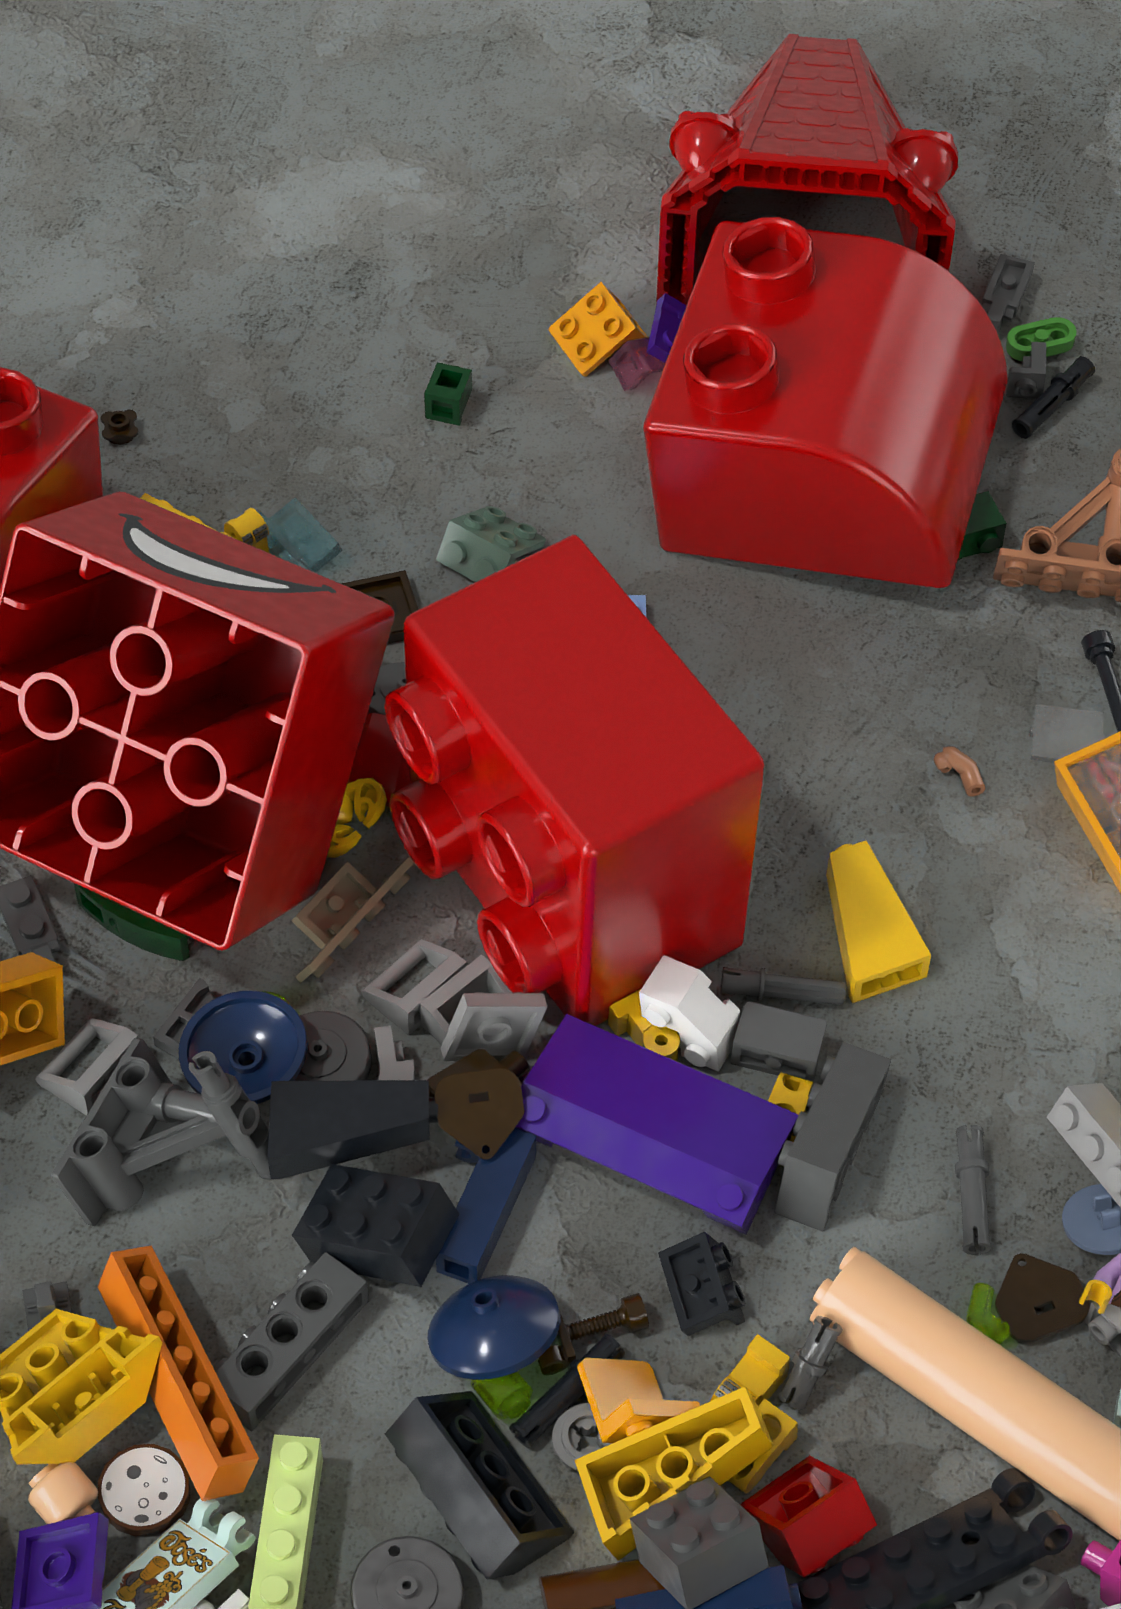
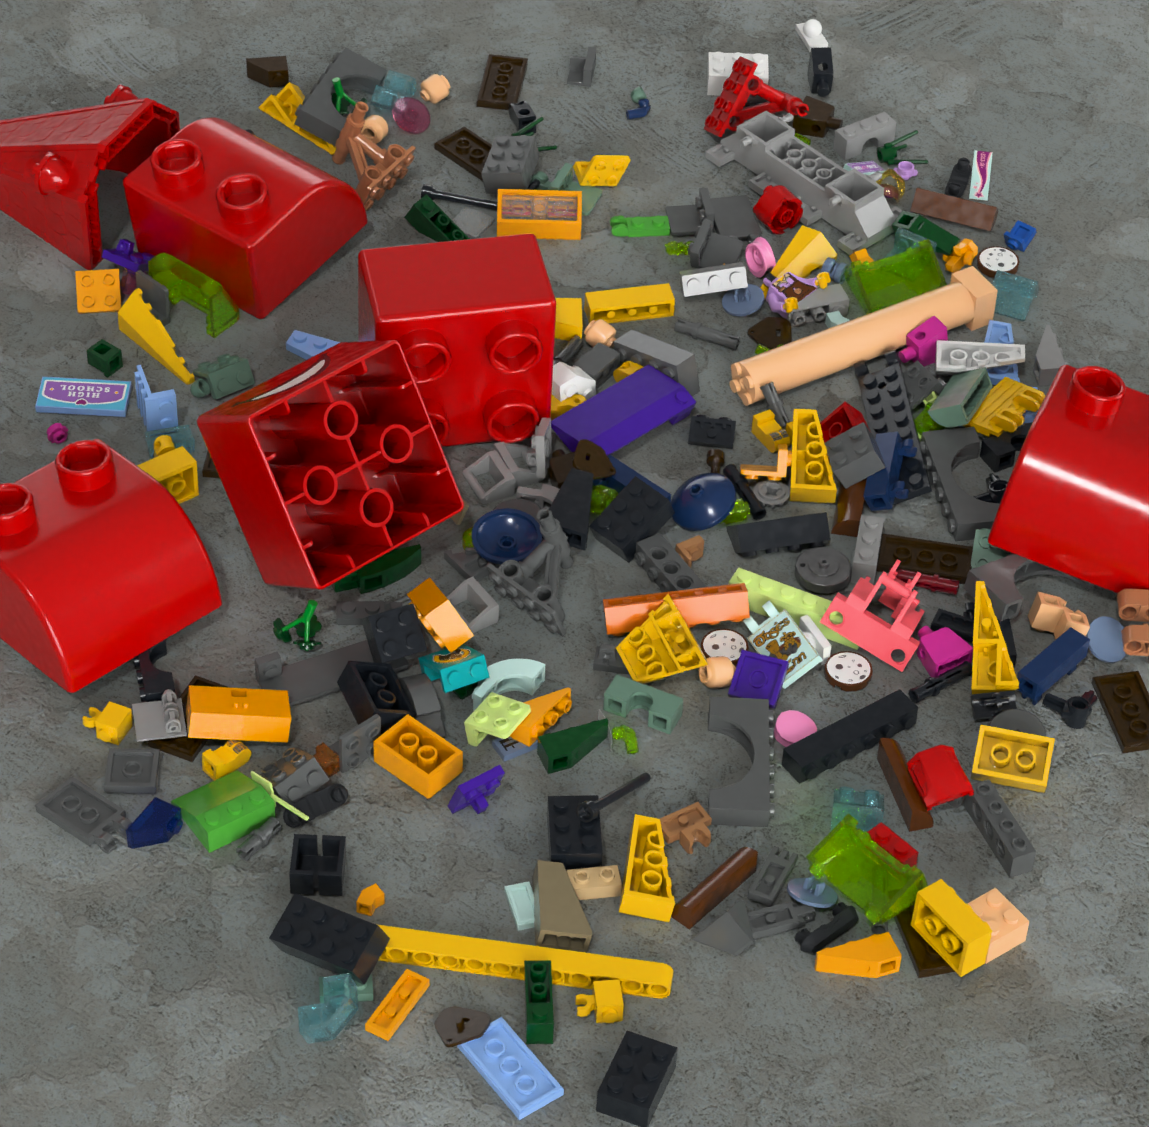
camera: 70 degrees left, 10 degrees down
(259, 404) = (57, 433): none -> dark pink plate
(344, 493) = (157, 408): none -> light blue plate
(361, 405) = (83, 396): none -> tile
(361, 1349) = (691, 549): none -> medium nougat bracket
(433, 524) = (200, 388): none -> sand green hinge
(433, 1161) = (601, 498): none -> clear neon green head
(518, 441) = (149, 333): none -> yellow wedge
(590, 398) = (156, 295): none -> dark grey bracket
(617, 456) = (197, 290): none -> clear neon green windscreen
(866, 1019) = (600, 332): none -> light nougat head
(979, 1038) = (630, 303): none -> yellow brick
(1017, 688) = (433, 222): none -> dark green slope

